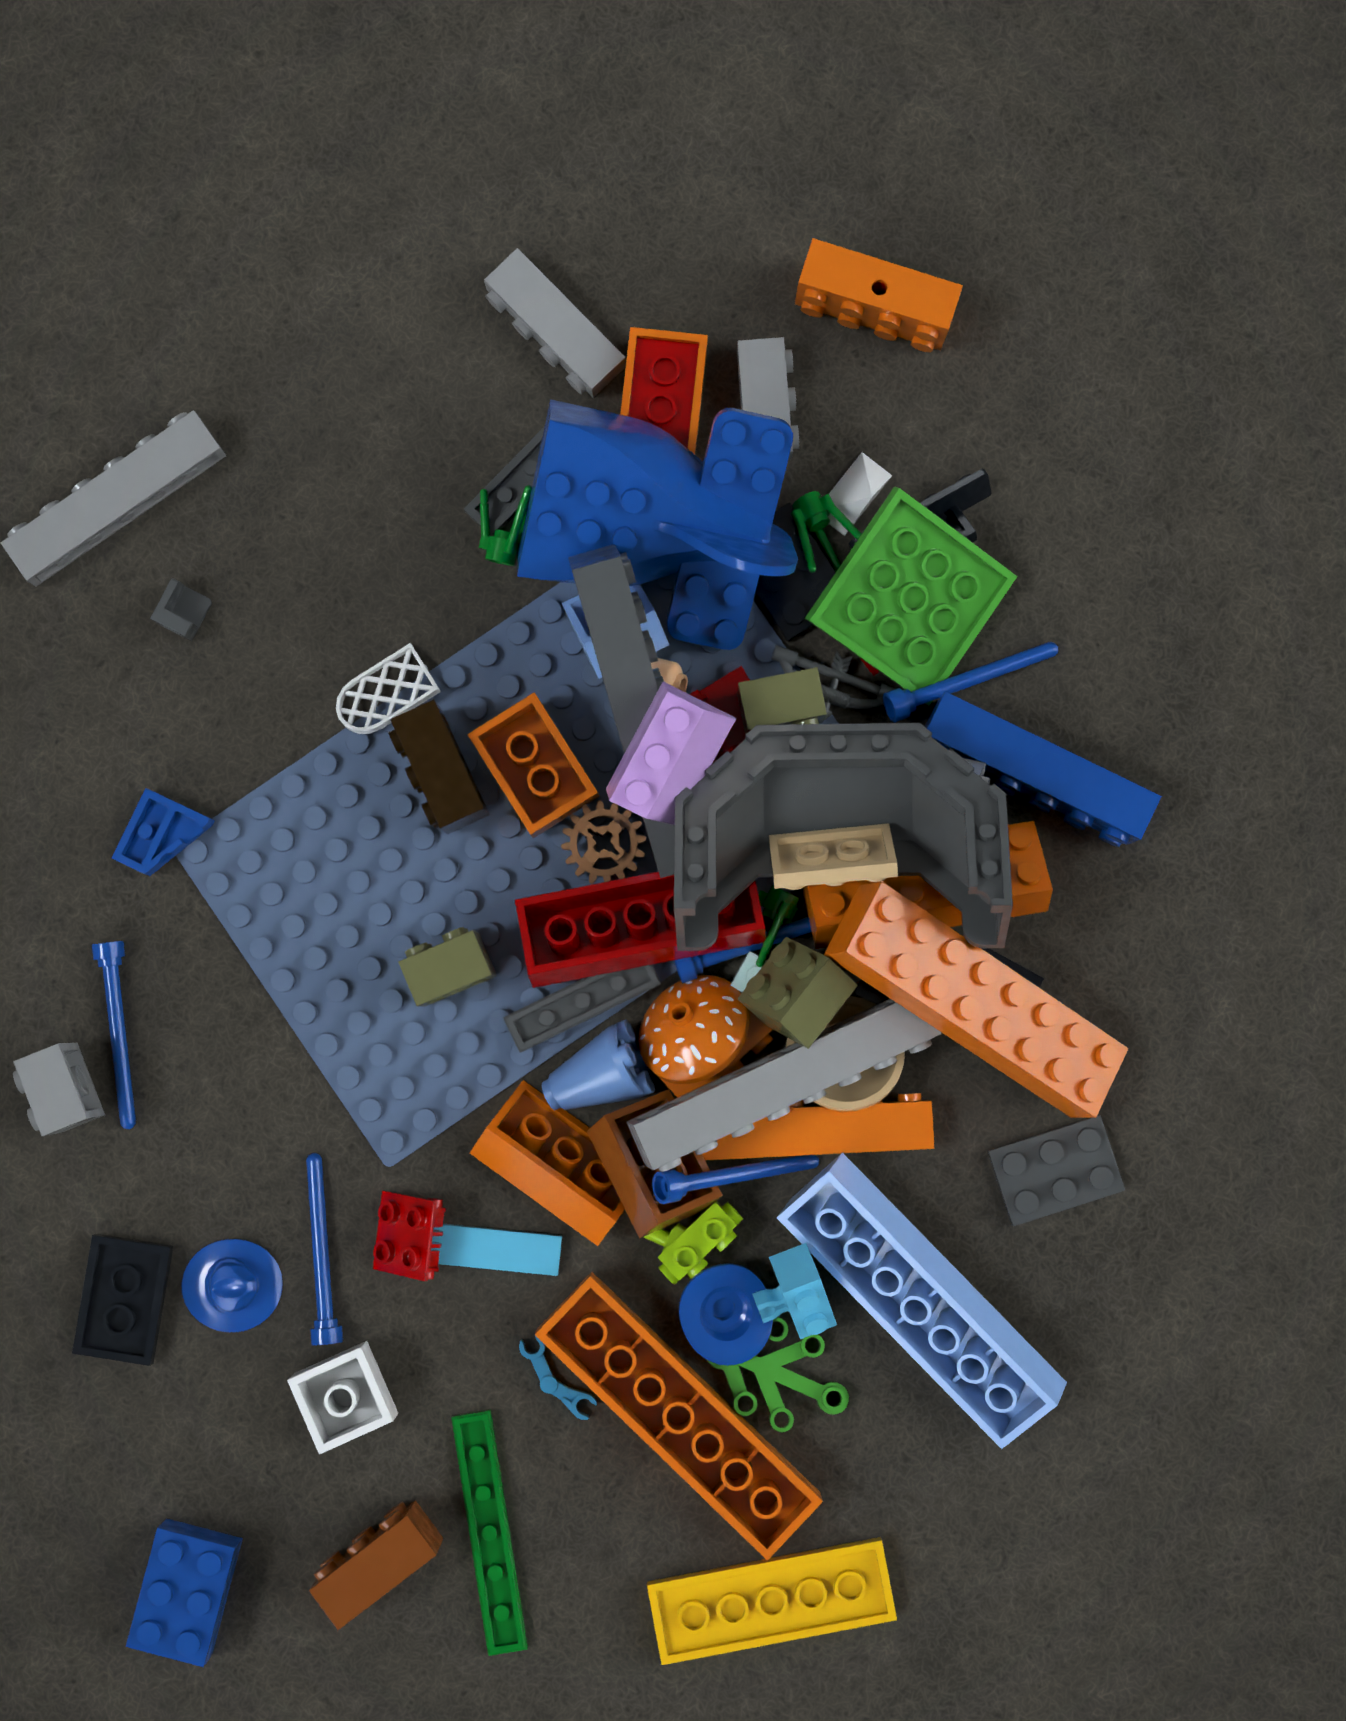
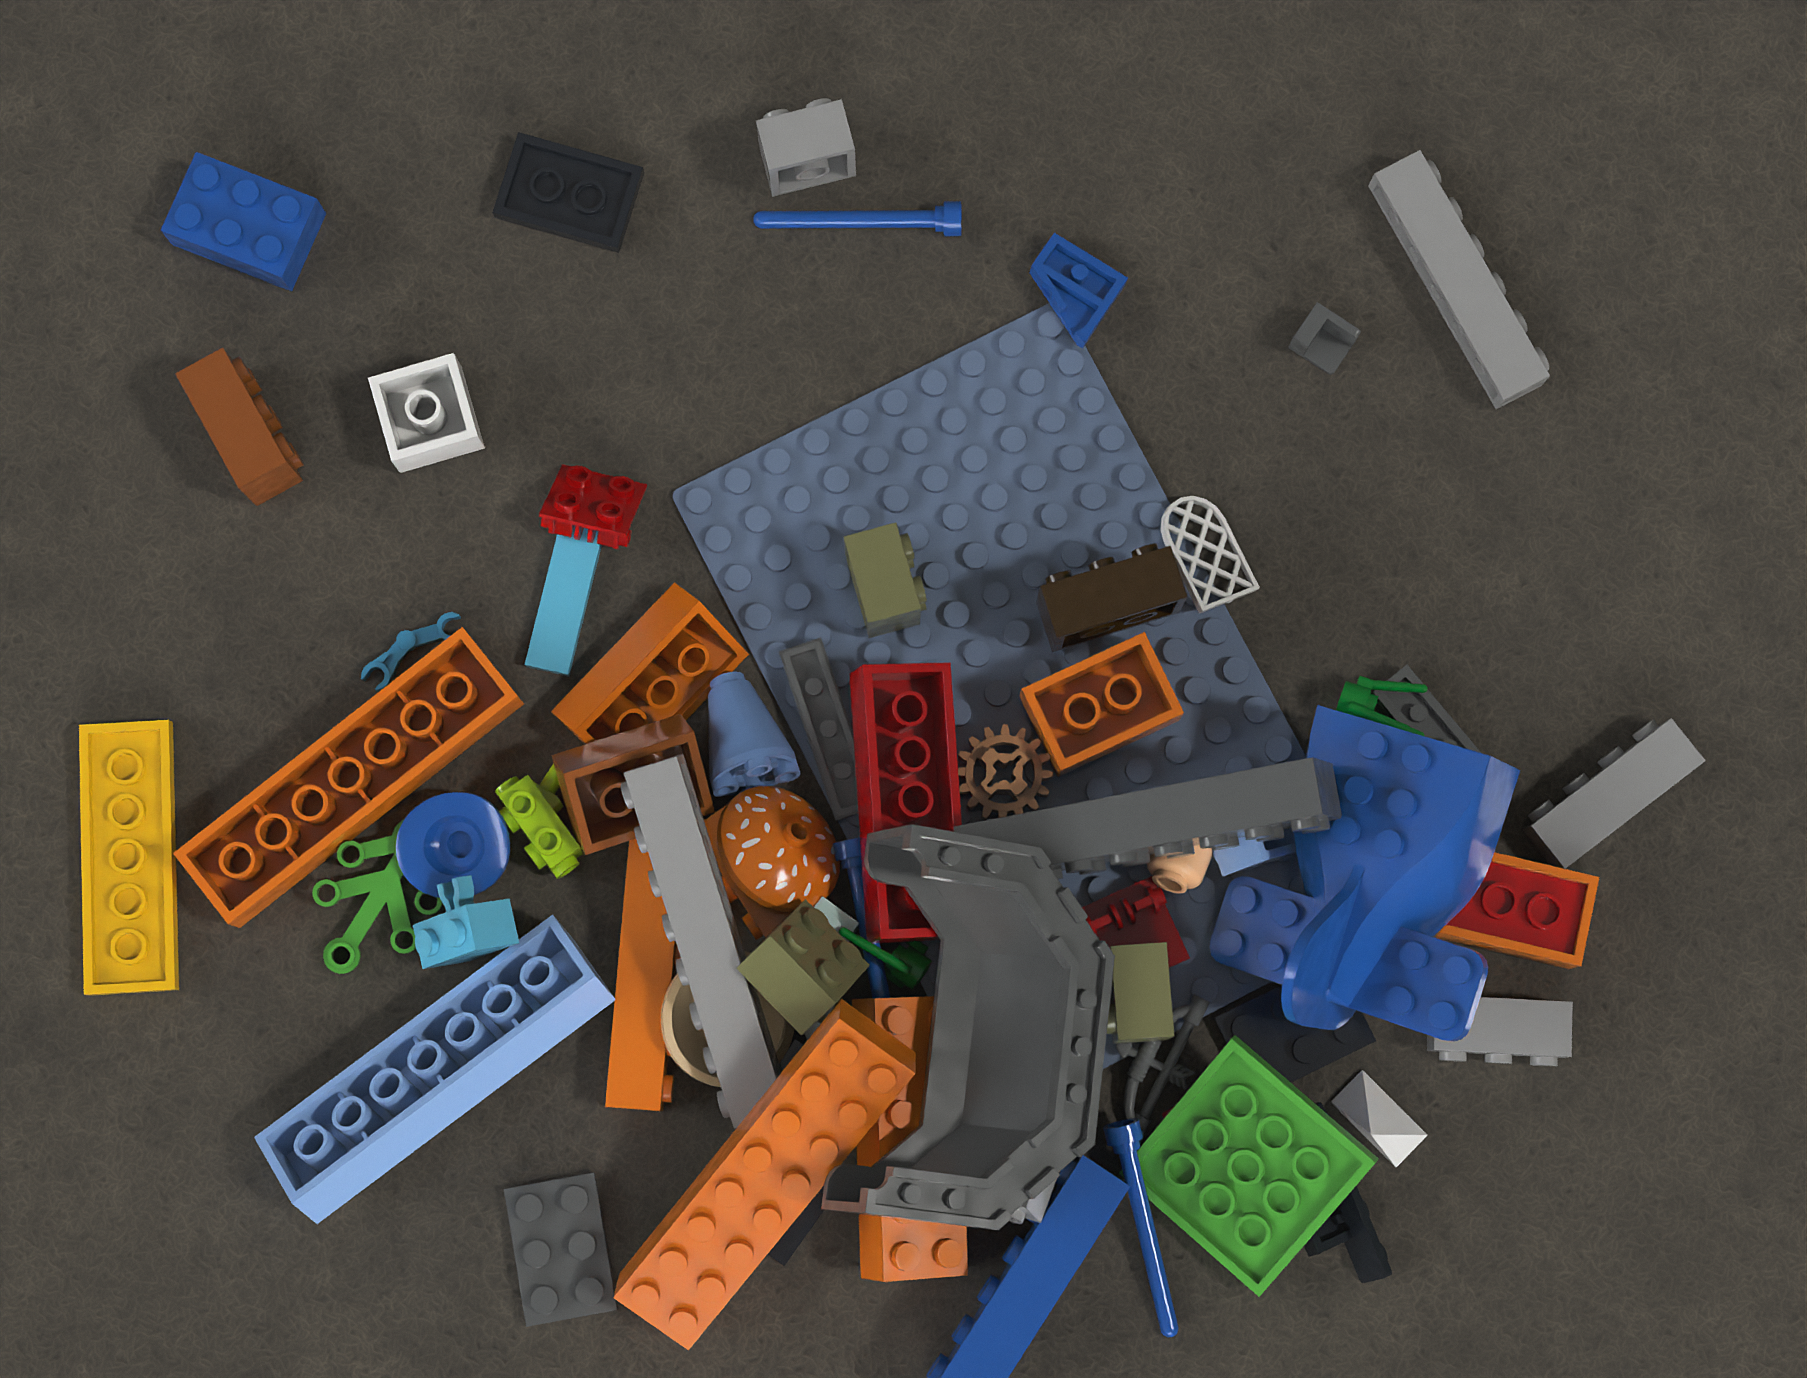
camera: 95 degrees right, 5 degrees down
(232, 1285) = (566, 311): blue hat -> none
(326, 1328) = (505, 405): blue piece -> none
(489, 1532) = (255, 556): green tile -> none
(668, 753) = (1091, 847): lavender slope -> none
(673, 1185) = (603, 795): blue piece -> none
(812, 512) = (1360, 1065): green plant -> none
(833, 856) = (952, 1023): tan plate -> none
(877, 295) = (1610, 1173): orange brick -> none

